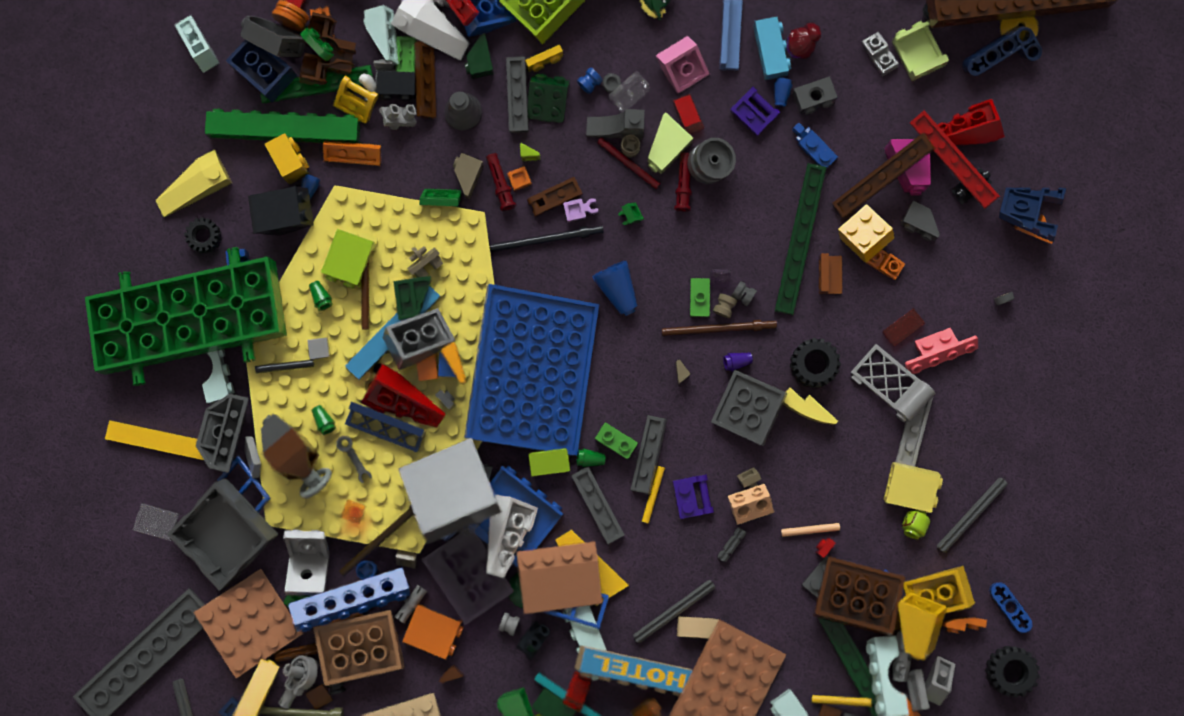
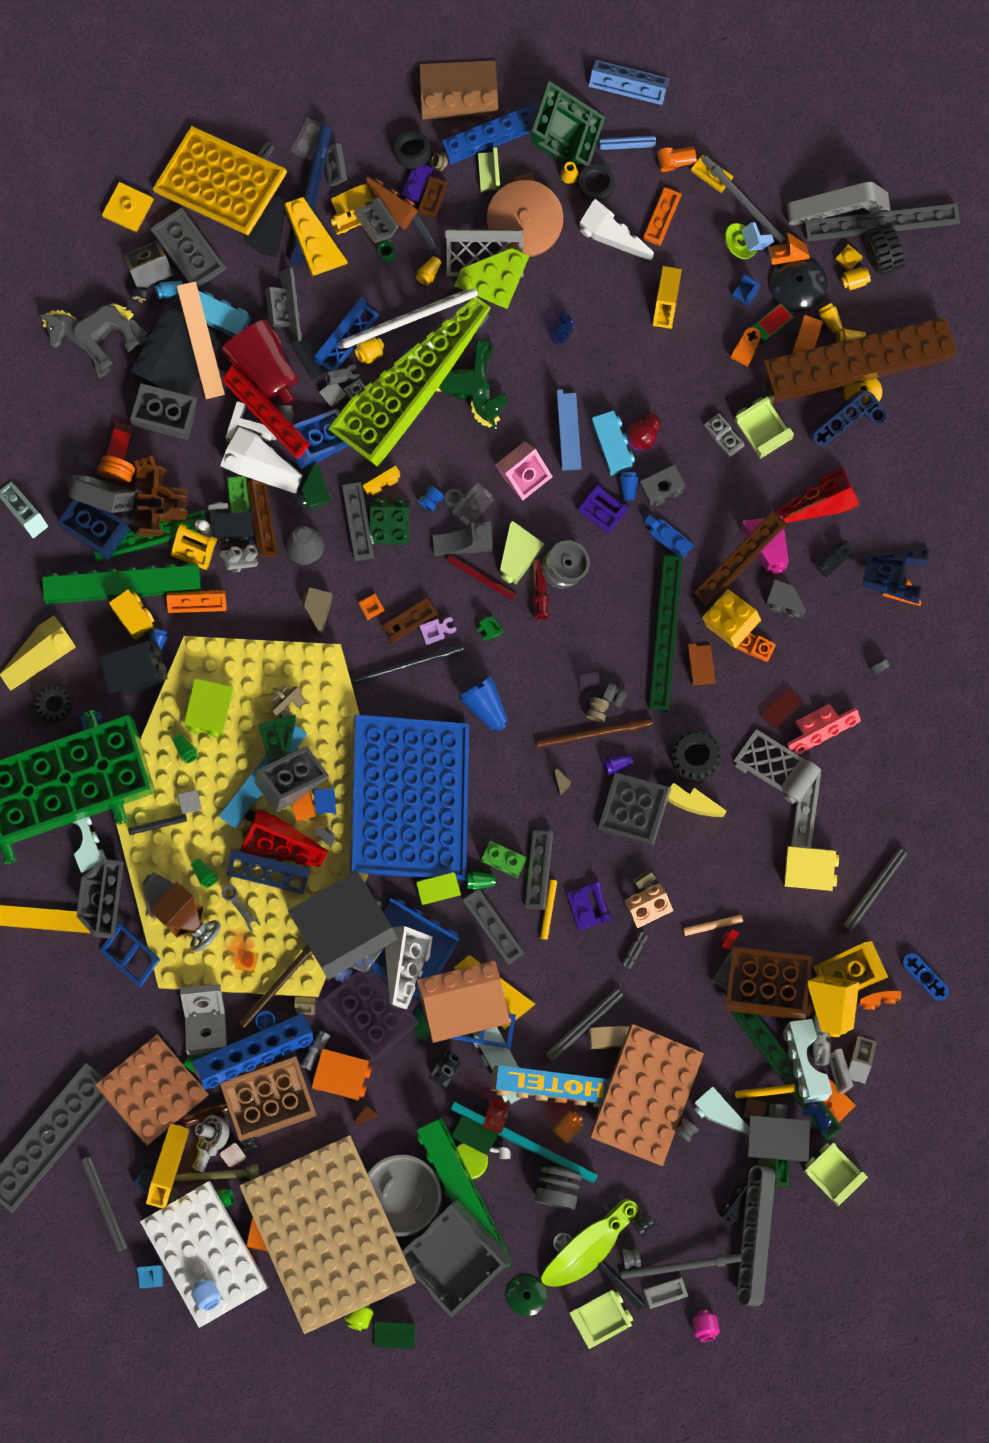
camera: 10 degrees left, 5 degrees down
(155, 521) = (43, 1000): clear plate -> none
(222, 534) = (115, 1001): dark grey tile -> none
(252, 457) = (135, 921): light grey tile -> none
(323, 49) = (144, 490): green plate -> none
(365, 298) = (231, 747): reddish brown bar -> none
(379, 27) = (207, 467): light aqua slope -> none
(440, 197) = (293, 635): green tile -> none
(453, 358) = (329, 793): light orange slope -> none
(502, 190) = (356, 621): dark red pin -> none
(509, 623) = (418, 1057): light grey wheel -> none
(528, 153) = (378, 580): lime slope -> none
(630, 142) = (478, 557): dark tan wheel -> none
(688, 114) = (536, 520): red tile -> none
(699, 297) = (571, 704): bright green plate -> none
(915, 524) = (818, 905): lime head -> none
(955, 160) = (811, 533): red tile -> none
(1028, 676) = (951, 1037): black tyre -> none

